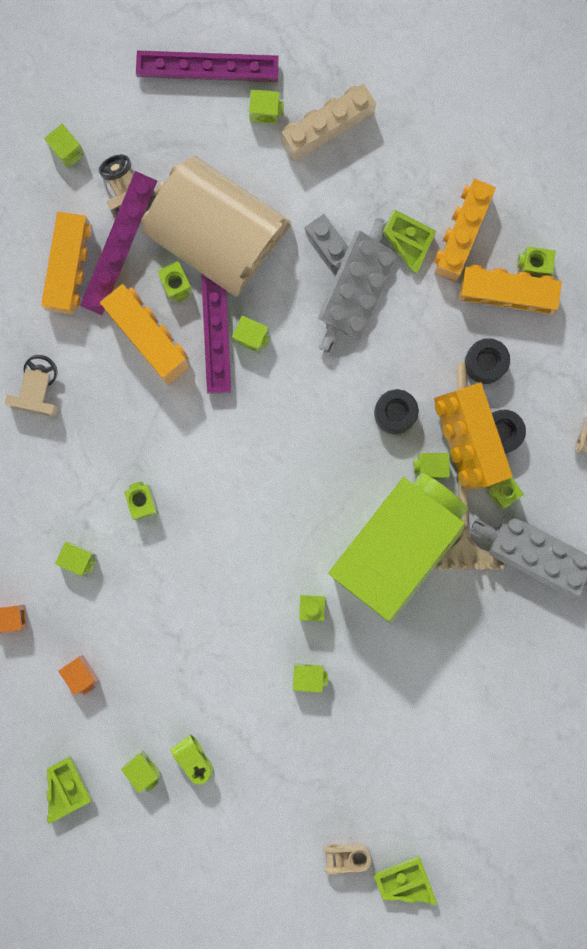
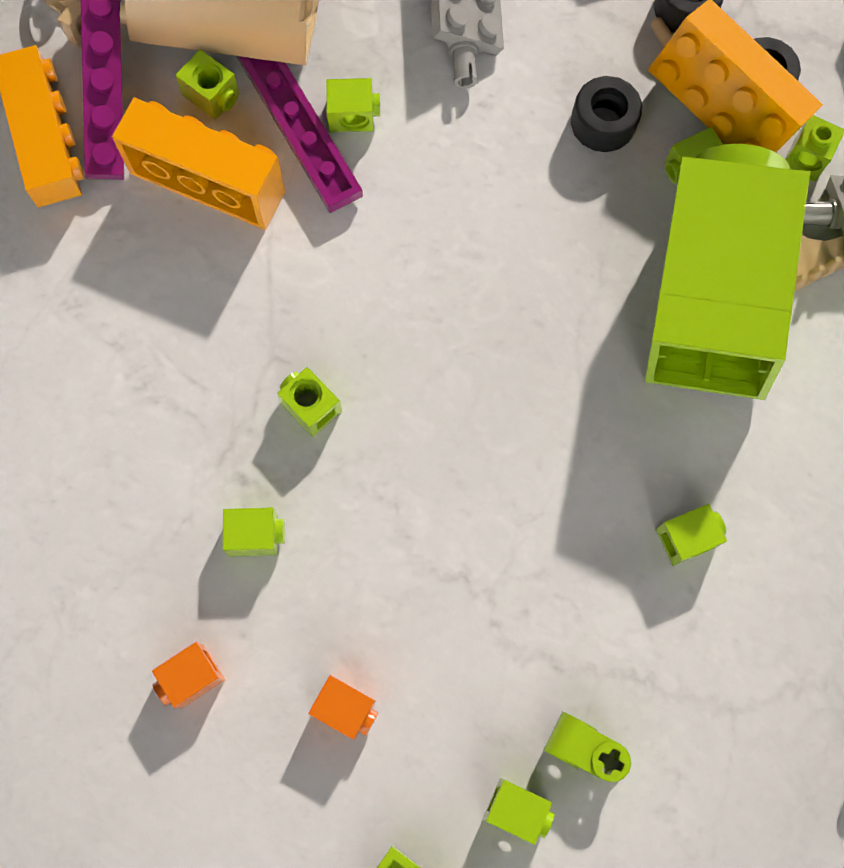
camera: 30 degrees left, 10 degrees down
(34, 388) = (71, 320): tan piece -> none
(312, 608) = (640, 429): lime brick -> none

